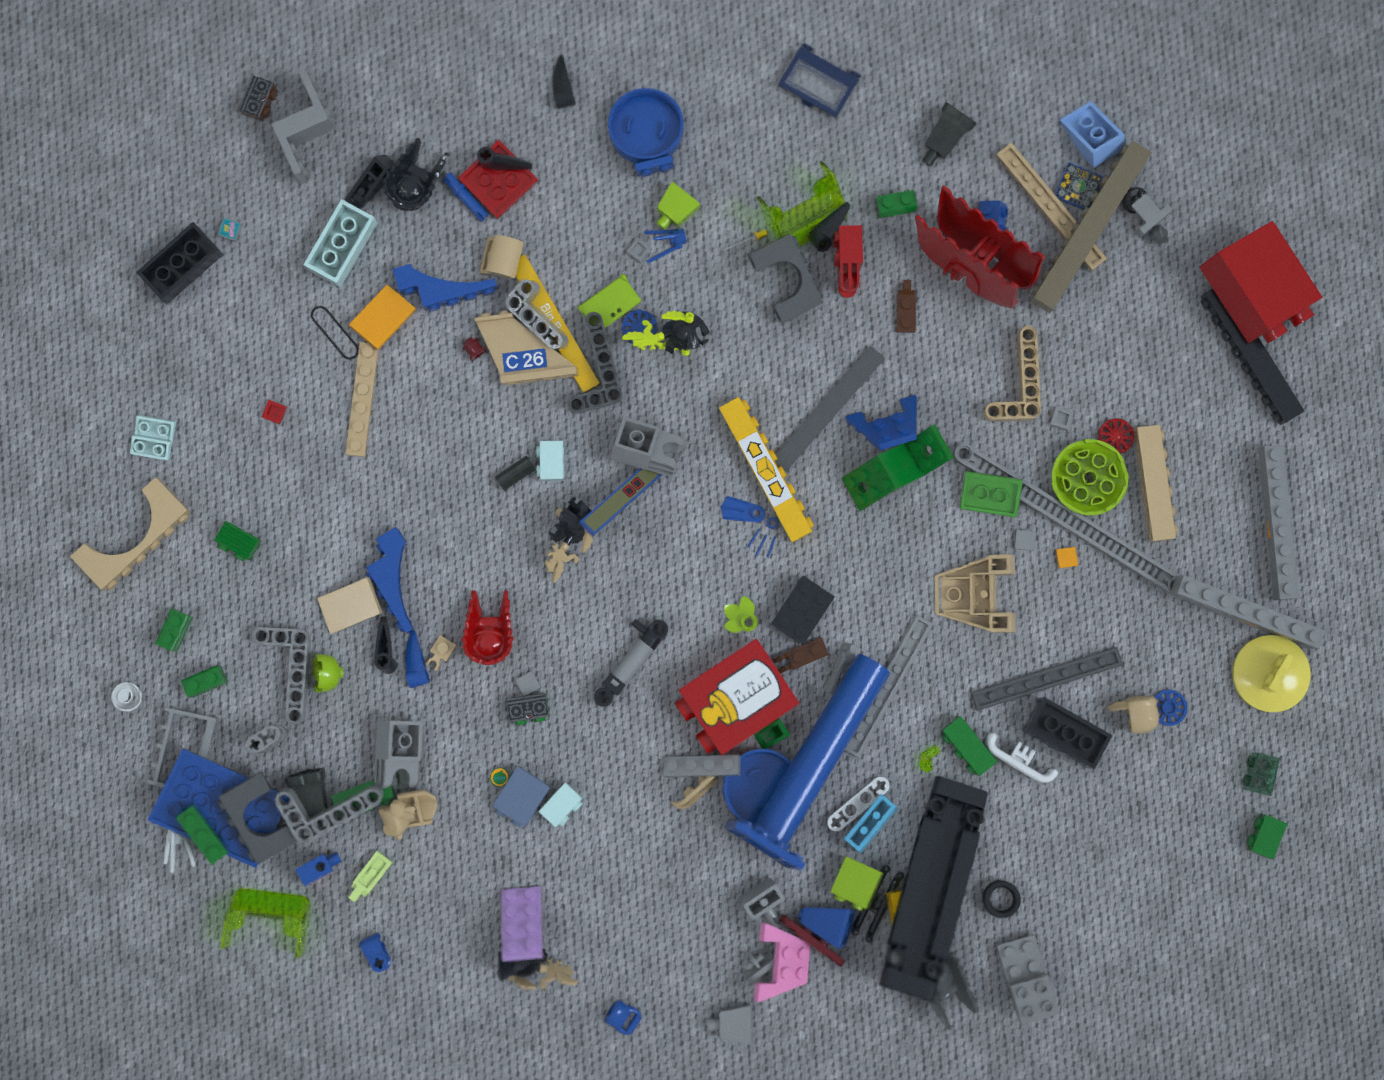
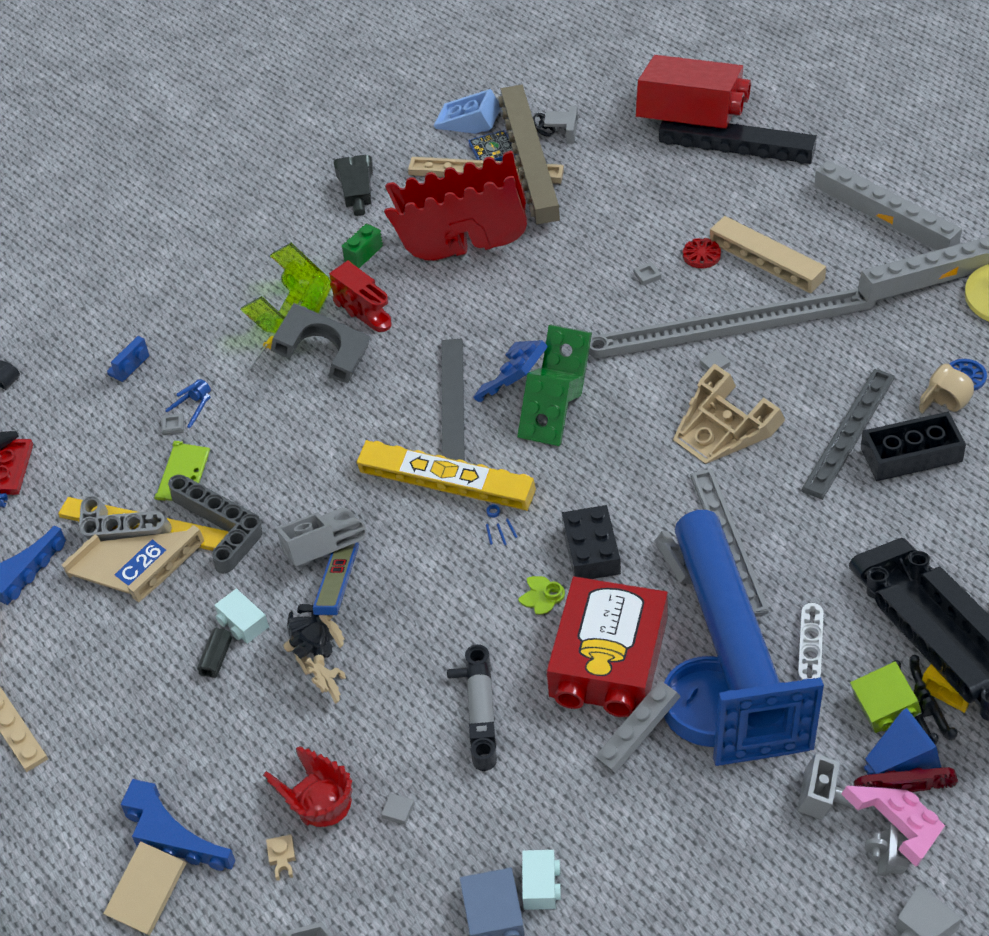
camera: 35 degrees left, 35 degrees down
(383, 648) = (220, 896): black piece -> none
(415, 665) = (265, 885): blue piece -> none
(473, 348) = (82, 593): dark red brick -> none
(499, 777) = (452, 913): green tile -> none
(501, 257) = (46, 507): tan brick -> none
(528, 708) = (419, 825): brick -> none
(638, 326) = (227, 471): blue wheel -> none
(645, 125) = (93, 341): blue brick -> none
(676, 207) = (177, 370): lime torso -> none
(679, 330) = (270, 435): helmet -> none
(693, 794) = (652, 763): tan piece -> none
(741, 510) = (455, 524): blue piece -> none
(771, 734) = (672, 649): green slope -> none
(803, 655) = (633, 569): reddish brown hinge -> none
(818, 82) = (218, 226): piece -> none
(822, 233) = (321, 299): black piece -> none
(871, 823) = (840, 642): medium azure brick -> none
(906, 309) = (444, 300): reddish brown hinge -> none
(926, 758) = (824, 563): clear neon green arm -> none
(968, 746) = (848, 522): green brick -> none
(991, 494) = (651, 350): bright green tile -> none
(1019, 759) = (899, 498): white piece -> none
(1024, 382) = (608, 279): tan beam -> none
(1066, 557) = (761, 347): light orange tile -> none
(1108, 475) = (713, 283): lime brick -> none
(1160, 234) = (585, 127): dark grey tile -> none

